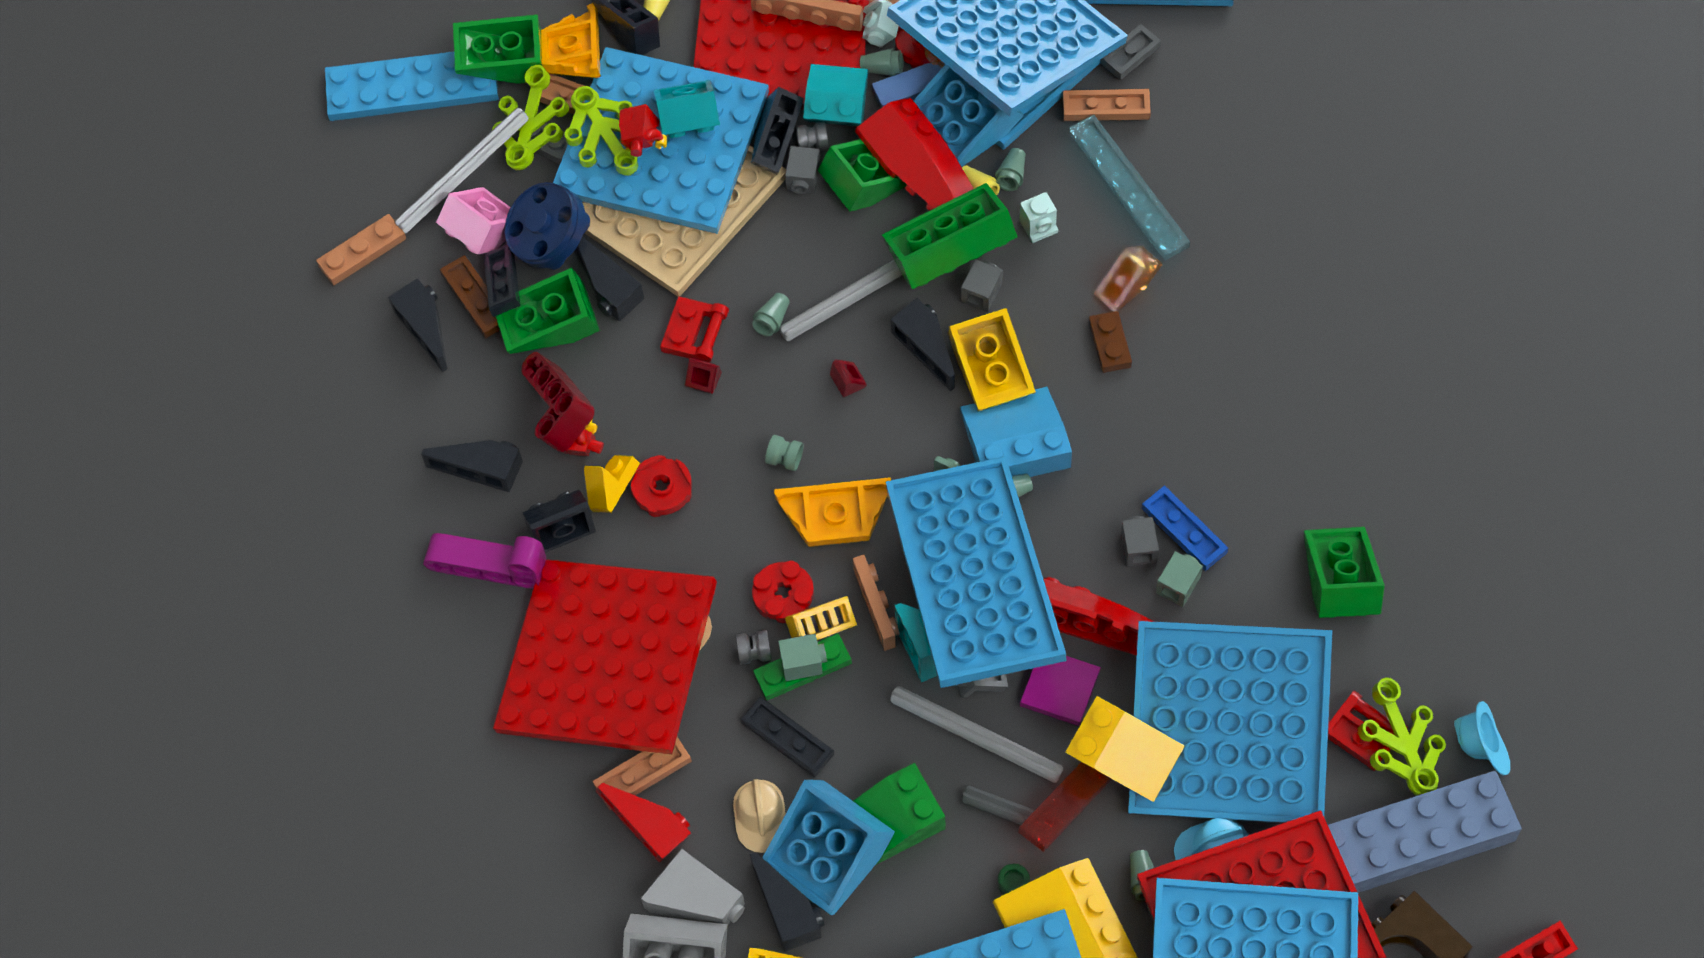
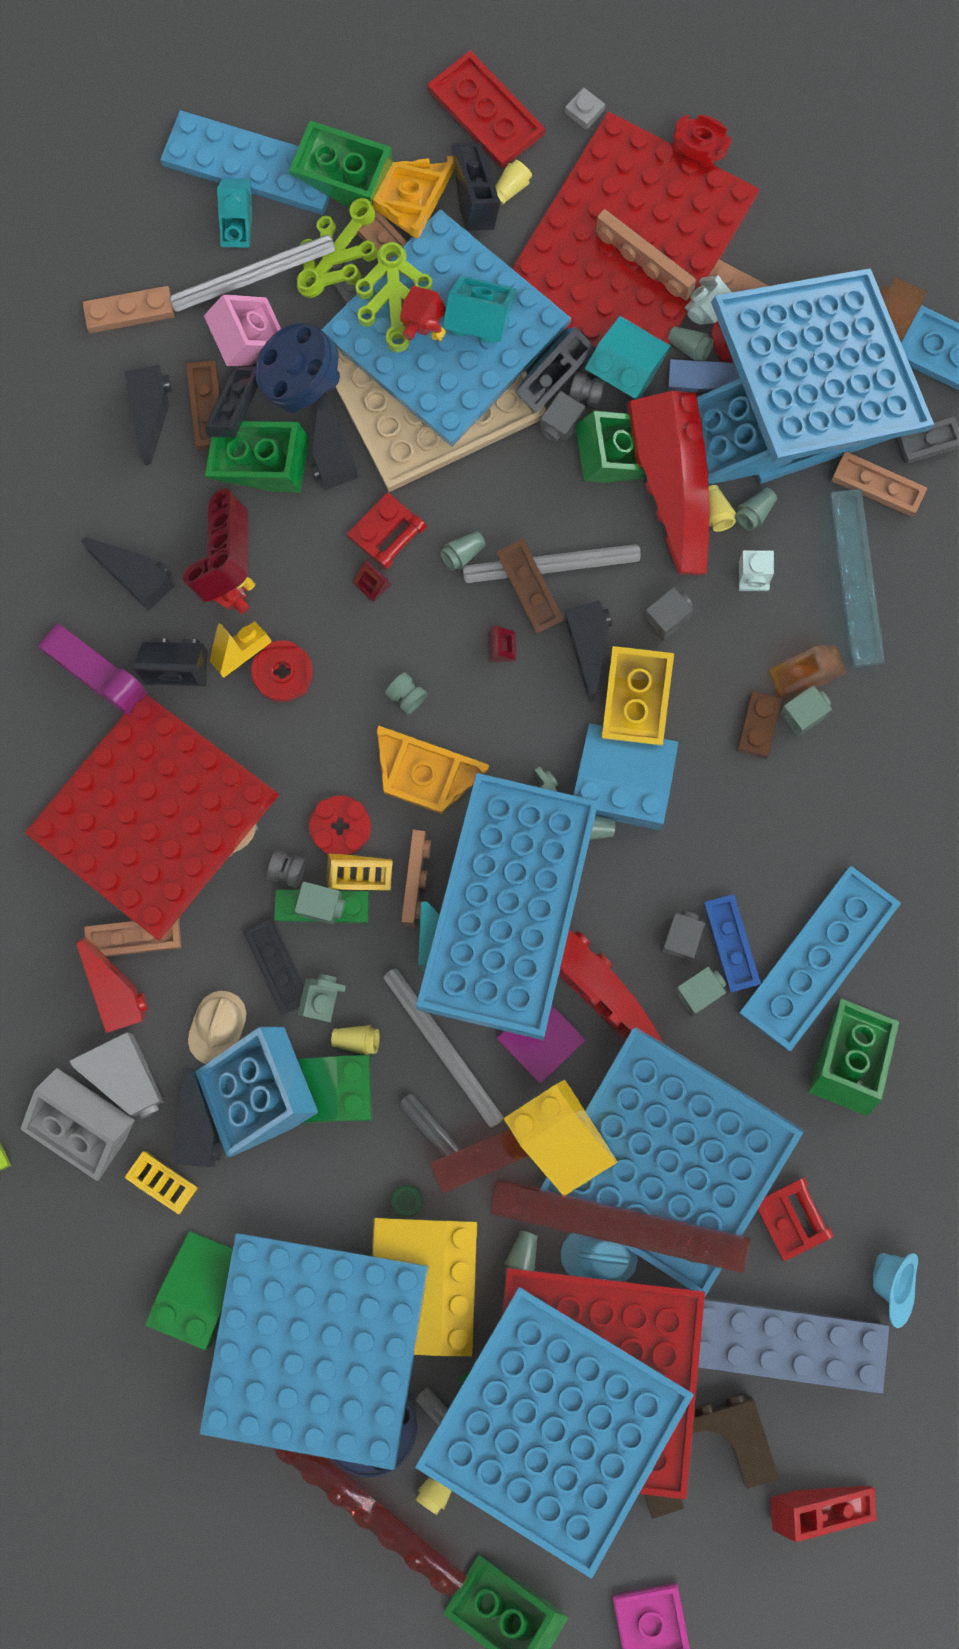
camera: 25 degrees right, 15 degrees up
(420, 129) = (235, 212): none -> teal slope
(841, 741) = (319, 997): none -> sand green bracket
(848, 315) = (529, 586): none -> reddish brown plate
(893, 761) = (358, 1039): none -> light yellow cone
(950, 235) = (660, 552): green slope -> none
(1144, 310) = (806, 710): none -> sand green brick
(1216, 800) = (621, 1226): none -> clear red plate
(1267, 506) = (819, 958): none -> dark azure plate
(1403, 742) = (823, 1252): lime plant -> none

